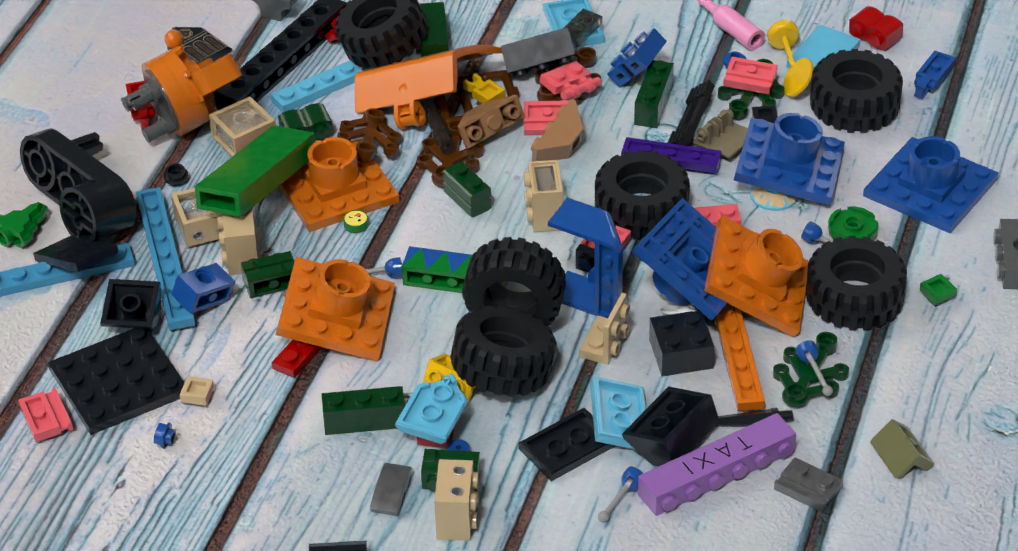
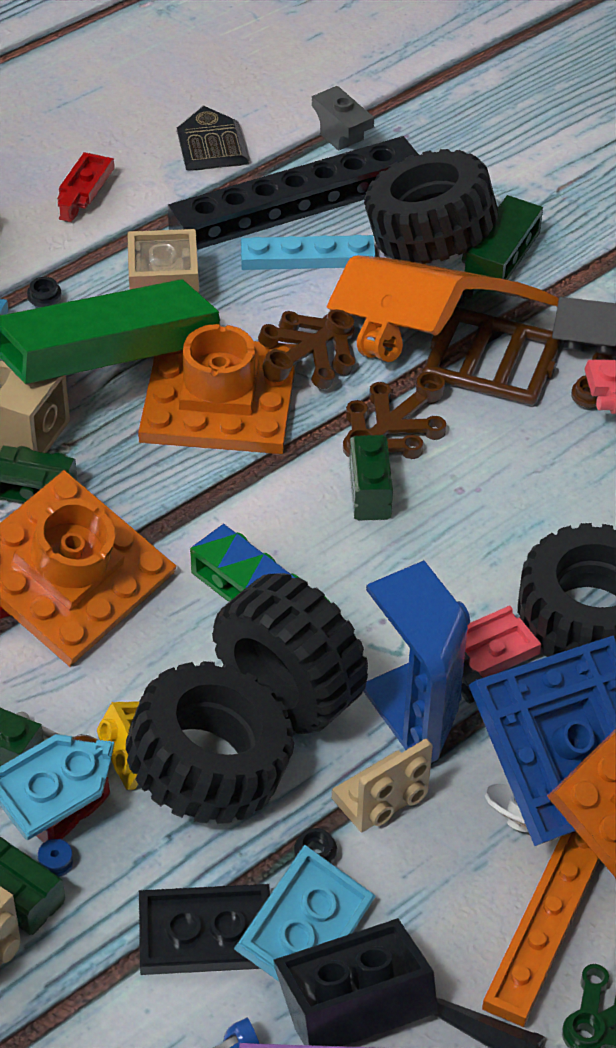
camera: 30 degrees right, 5 degrees up
(180, 88) = (113, 182): orange piece -> none
(310, 118) = (247, 296): dark green brick -> none
(355, 221) = (202, 455): tile -> none
(392, 268) = (184, 541): blue hinge -> none
(441, 134) = (401, 383): clear smoke pin -> none
(482, 90) = (501, 352): yellow plate -> none
(489, 119) = (472, 392): medium nougat slope -> none
(539, 114) = (560, 424): coral plate -> none
(543, 193) = (458, 533): tan piece -> none
(560, 136) = (552, 458): medium nougat slope -> none
(587, 376) = (317, 840): none -> black plate
(681, 343) = (476, 856): black brick -> none

